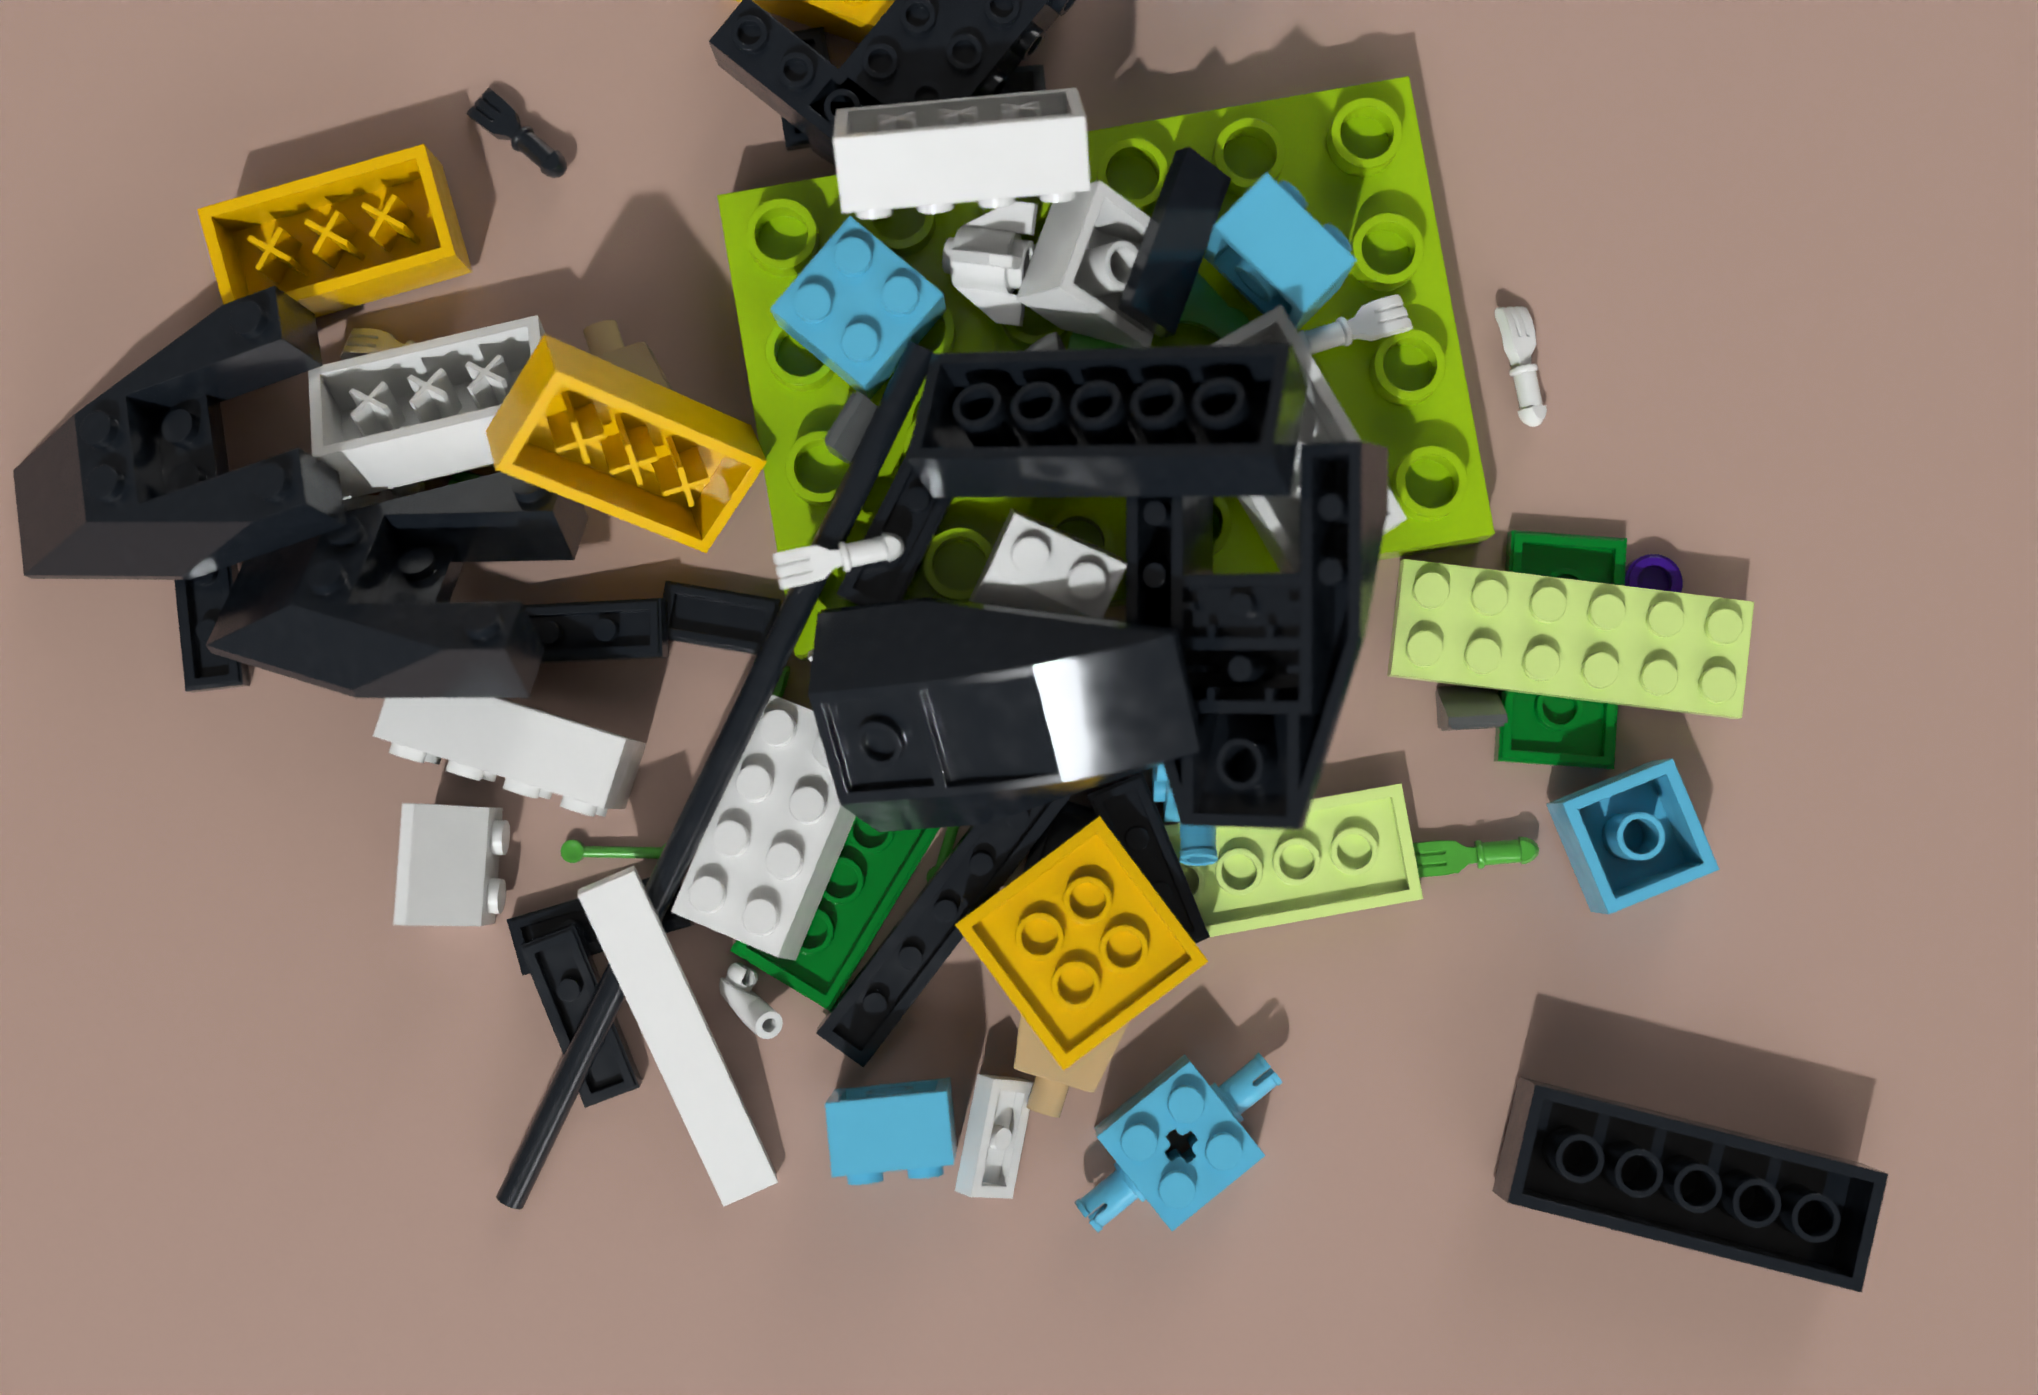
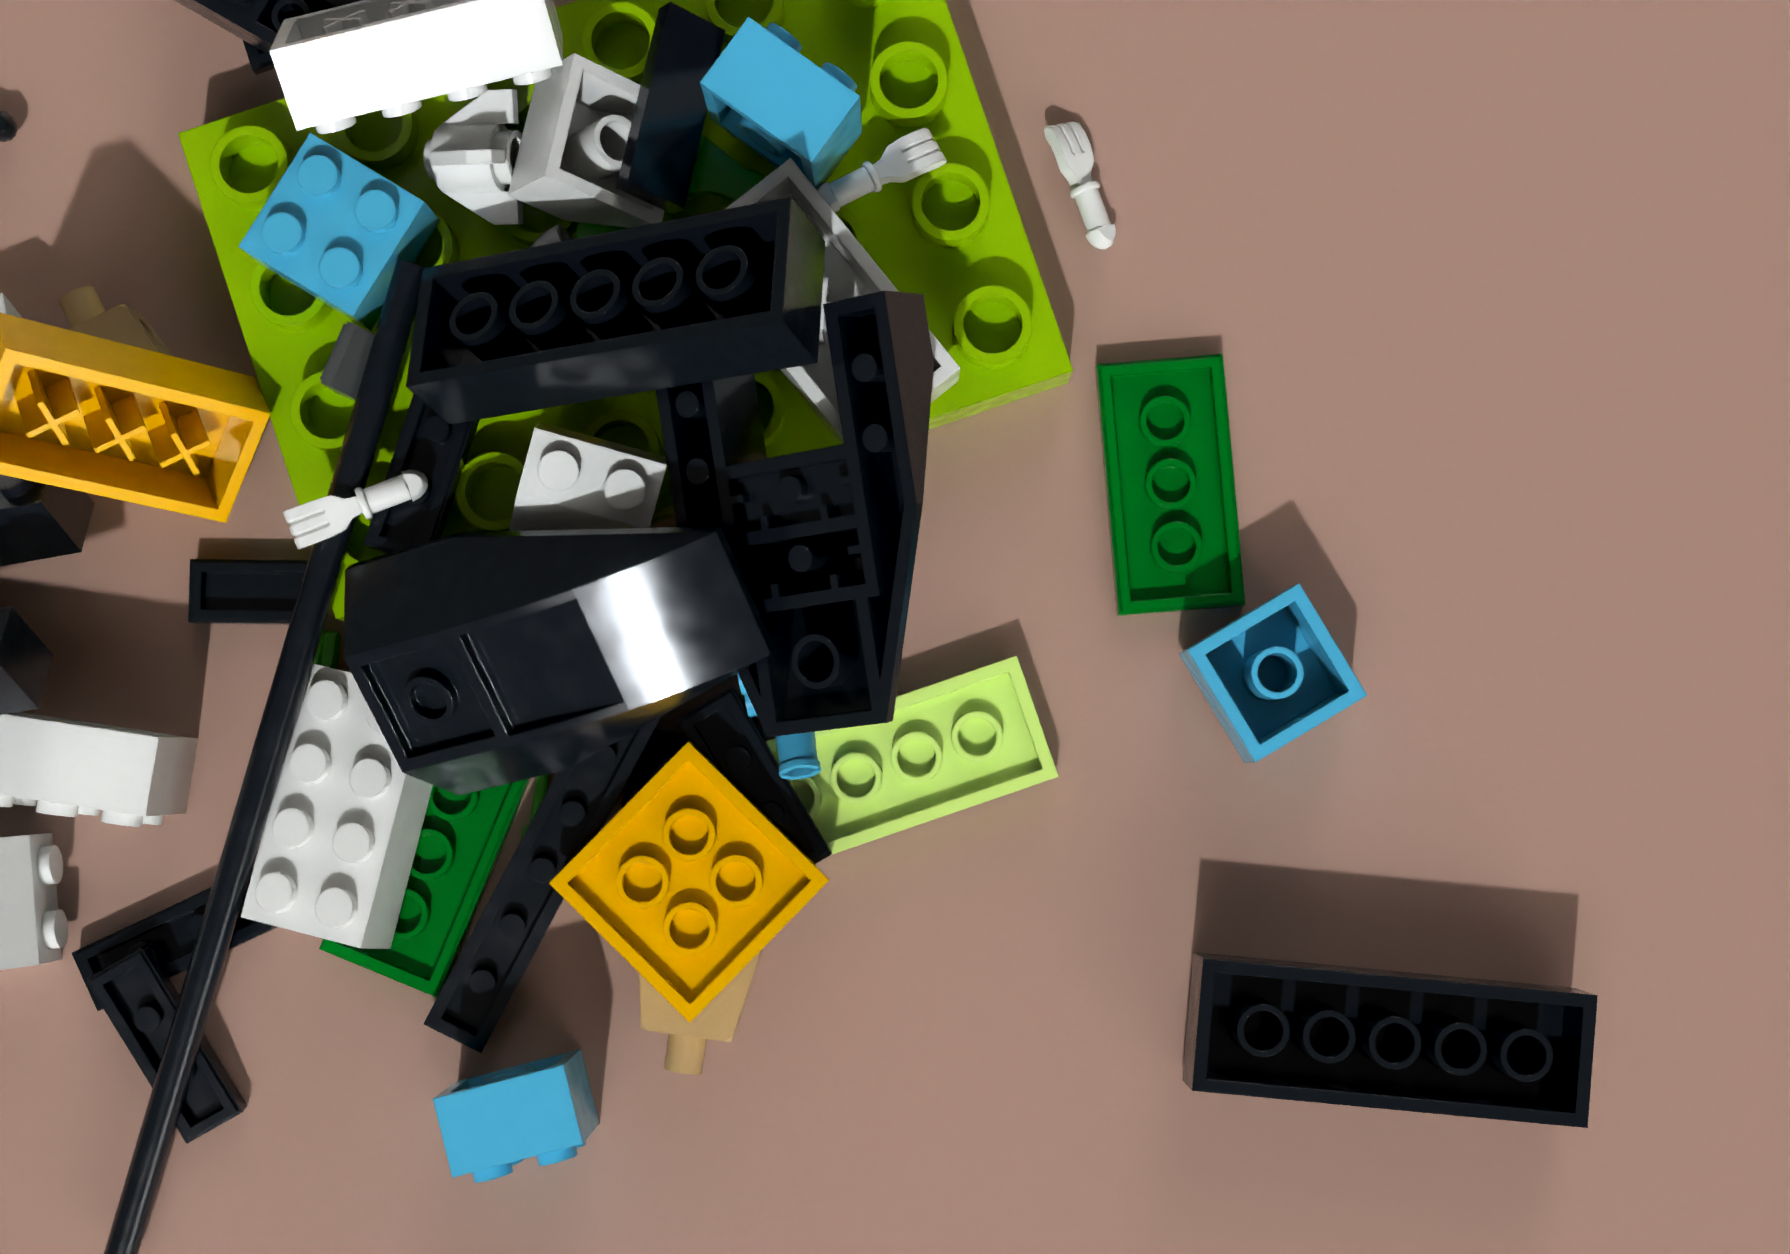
camera: 10 degrees left, 0 degrees up
(574, 851) = (137, 867): bright green hinge -> none
(601, 630) = (119, 625): black tile -> none
(677, 1035) = (269, 1049): white tile -> none
(749, 1007) = (346, 1003): white arm -> none
(994, 1137) = (633, 1106): white plate -> none
(1177, 1181) = (832, 1123): medium azure brick -> none
(1450, 857) = (1084, 726): bright green piece -> none
(1468, 708) = (1079, 562): dark grey slope -> none
(1571, 639) = (1176, 471): yellowish green plate -> none
(1654, 572) = (1257, 398): dark purple tile -> none

